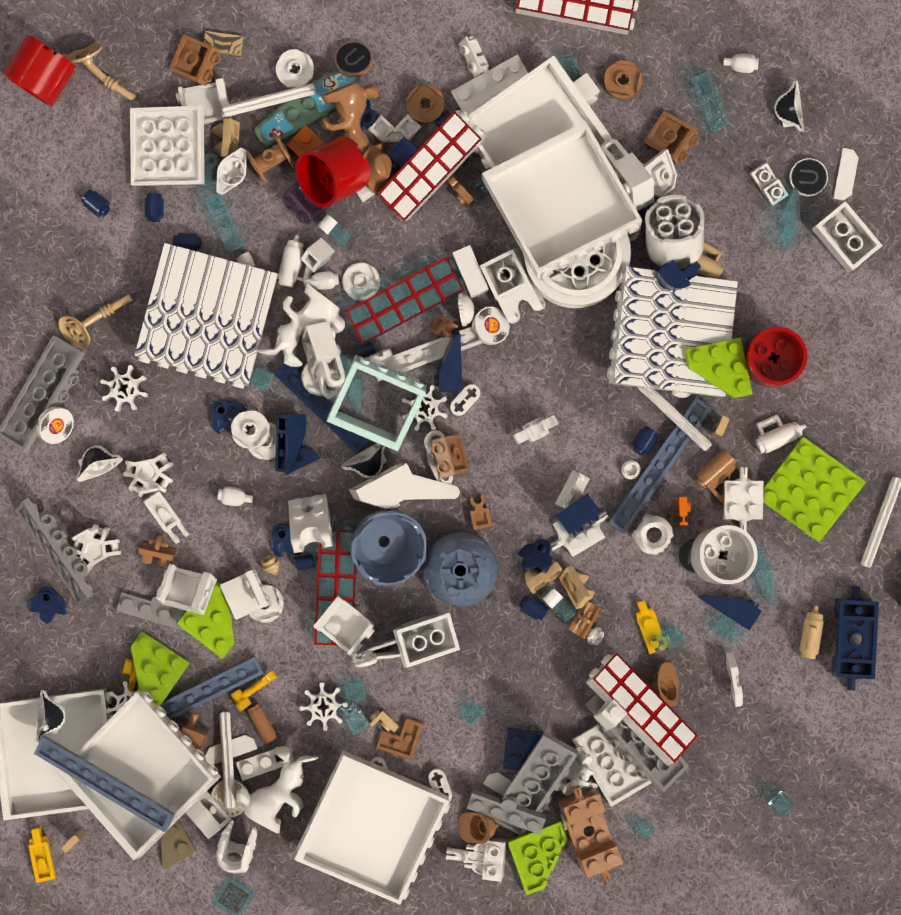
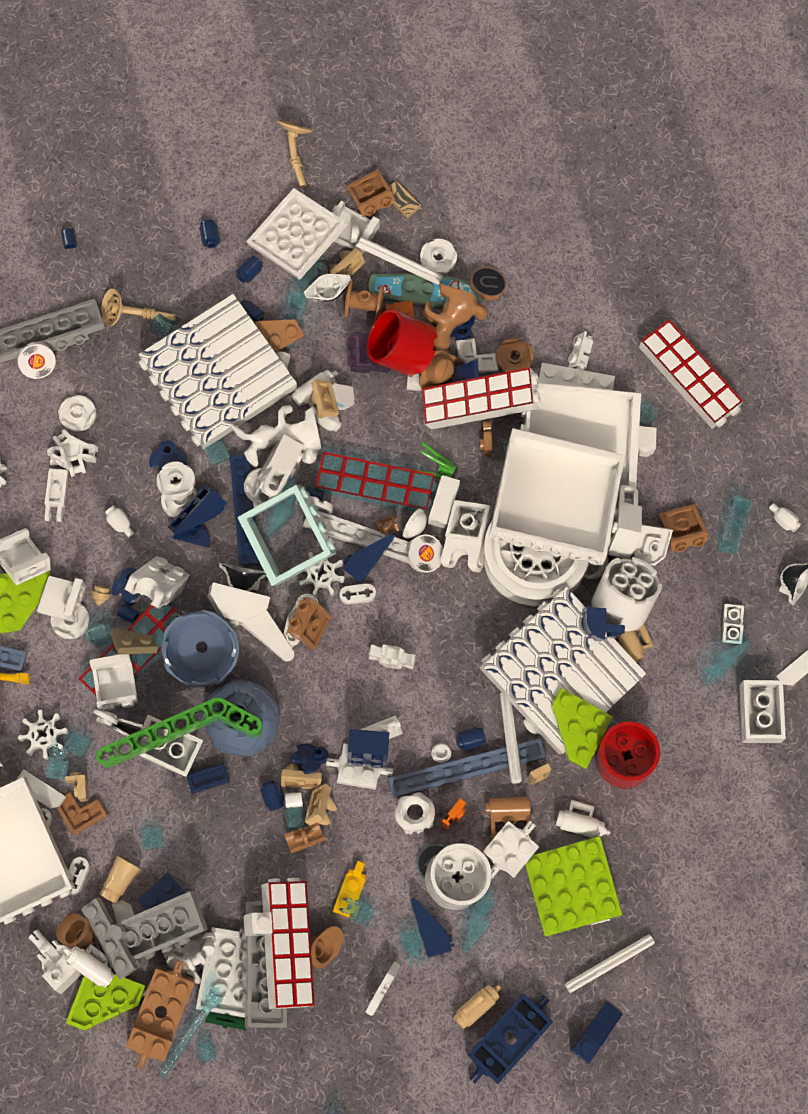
camera: 35 degrees right, 15 degrees down
(39, 70) = (251, 110): red brick -> none
(96, 462) = (41, 413): white hat -> none
(115, 386) = (115, 381): white gear -> none
(124, 438) = (77, 413): none -> white tile
(128, 313) = (162, 326): none -> clear light blue plate
(159, 549) = (28, 511): medium nougat hips -> none
(212, 106) = (354, 234): none -> white tile
(226, 241) = (280, 332): none -> medium nougat wing
(297, 594) = (99, 633): none -> clear light blue head
(310, 267) = (324, 398): none -> tan tile
(332, 585) = (132, 642): none -> dark tan wing
(335, 231) = (367, 392): clear light blue leg -> none
(358, 747) = (42, 791): none -> white piece
(364, 286) = (359, 447): white tile -> none
(420, 626) = (174, 733): none -> bright green beam
(449, 243) = (446, 467): none -> bright green plant
(474, 634) = (208, 778): none -> dark blue plate
(474, 762) = (118, 879): none -> tan plant
(480, 517) = (293, 691): medium nougat plate -> none
(511, 845) = (90, 963): none -> white piece
(595, 636) = (301, 859): white plate -> none
(619, 791) = (212, 1000): none -> clear light blue piece
(631, 73) = (680, 447): medium nougat plate -> none
(639, 796) = (213, 1017): none -> dark green pin
(808, 177) = (769, 644): black tile -> none

